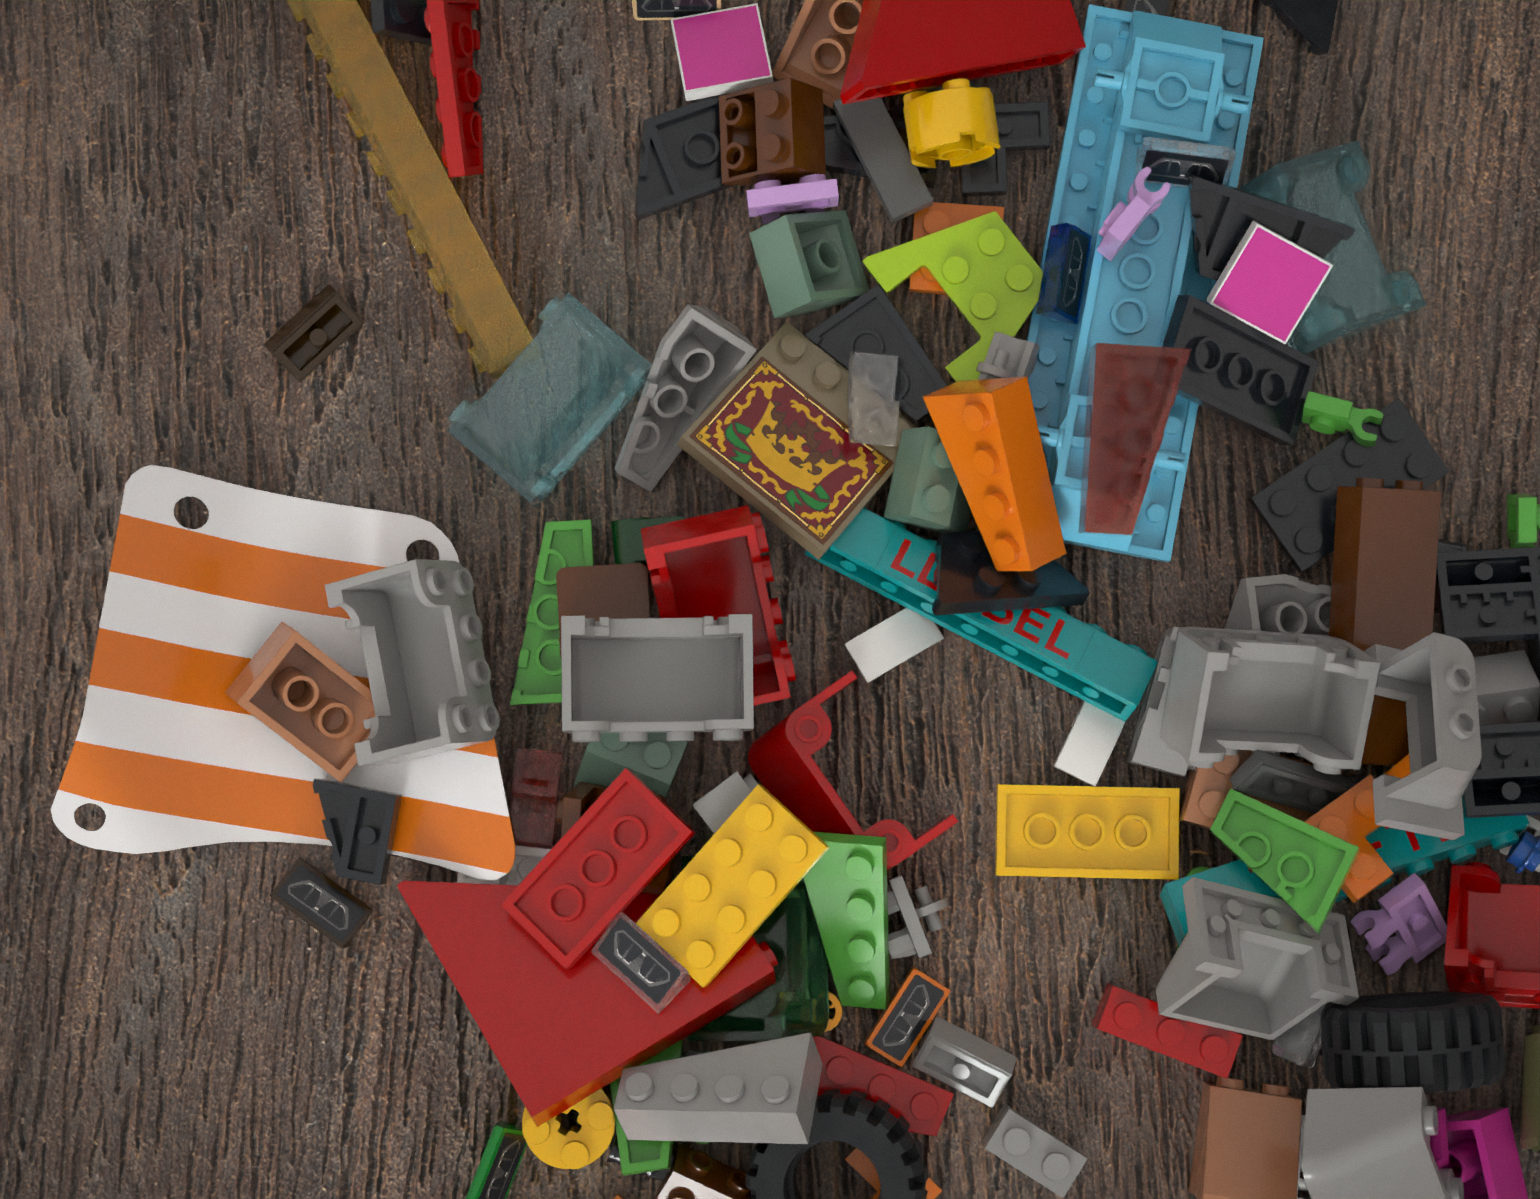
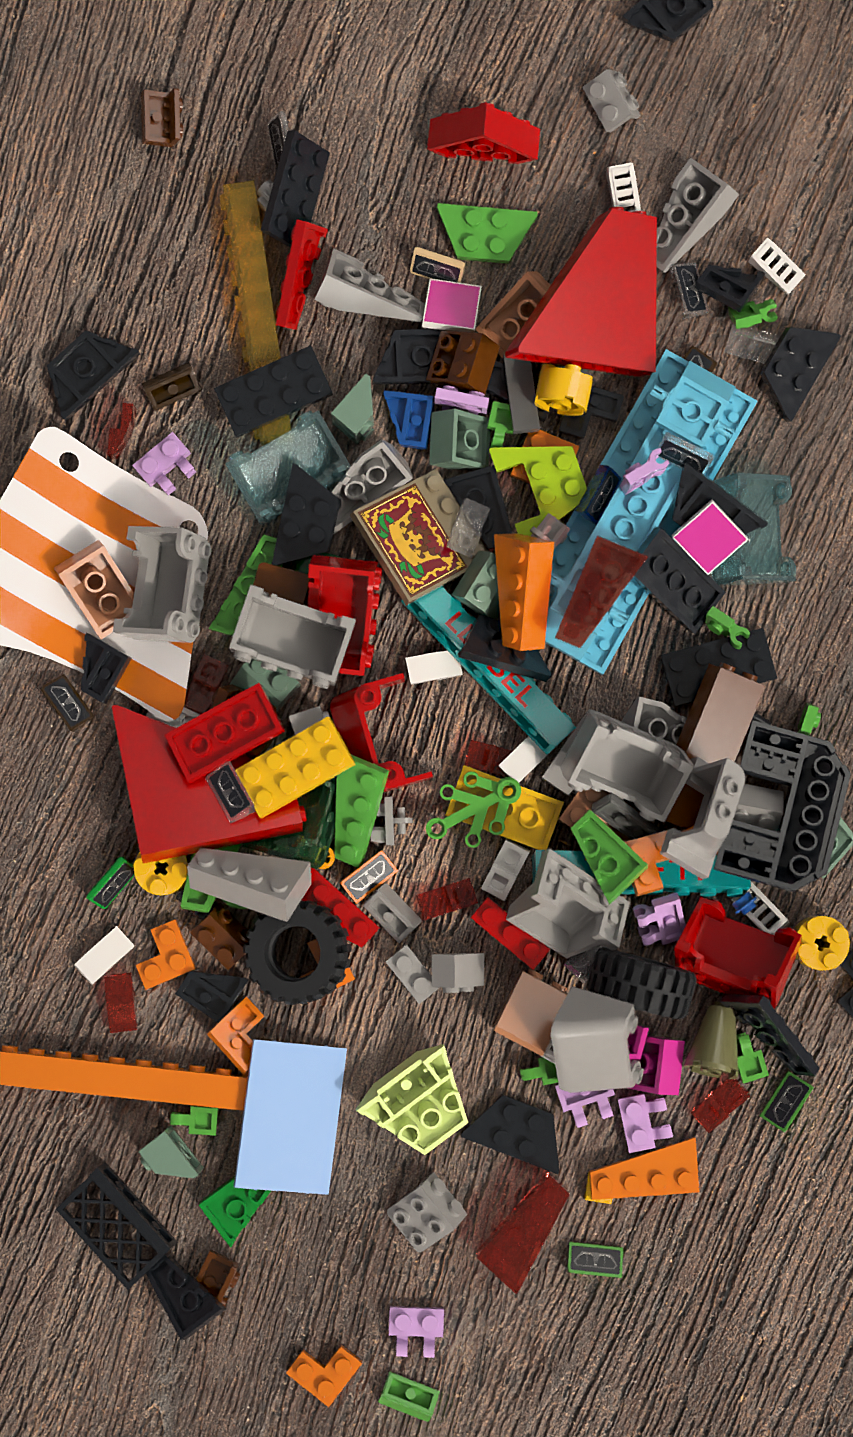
camera: 20 degrees right, 0 degrees up
(166, 353) = (86, 369): none -> black wing
(259, 444) = (119, 437): none -> clear red slope
(340, 456) = (163, 459): none -> lavender plate
(483, 286) = (273, 391): none -> black plate
(559, 78) = (355, 290): none -> light grey wedge
(608, 474) = (306, 519): none -> black wing
(628, 274) = (355, 412): none -> sand green slope
(717, 252) = (411, 417): none -> blue wing
(863, 211) = (500, 422): none -> bright green plate
(1029, 758) = (486, 757): none -> clear red slope
(1044, 1009) = (446, 899): none -> clear red slope
(1045, 844) = (477, 807): none -> bright green plant
(1106, 1123) = (457, 971): none -> light grey brick
(1122, 928) = (505, 869): none -> white slope

